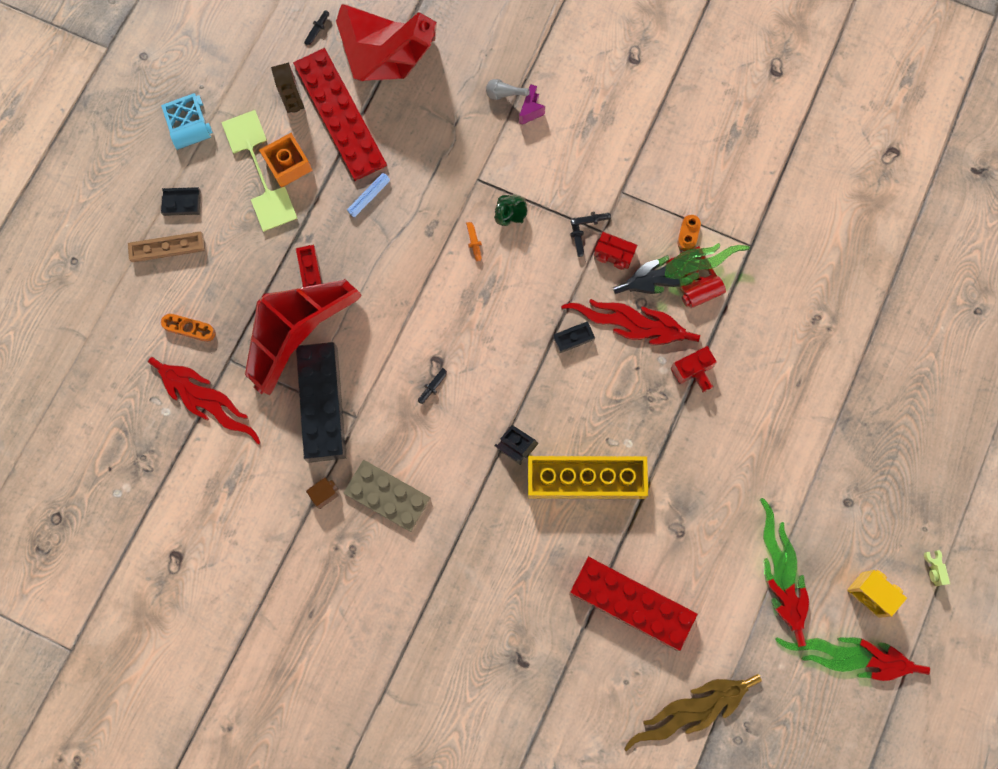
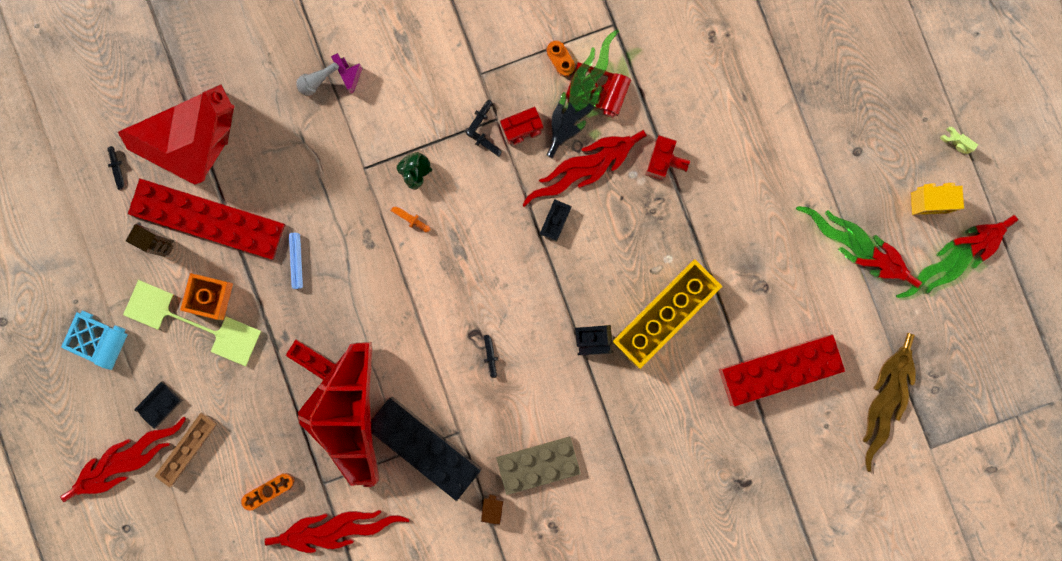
camera: 45 degrees left, 10 degrees up
(112, 209) = (94, 480): none -> red piece

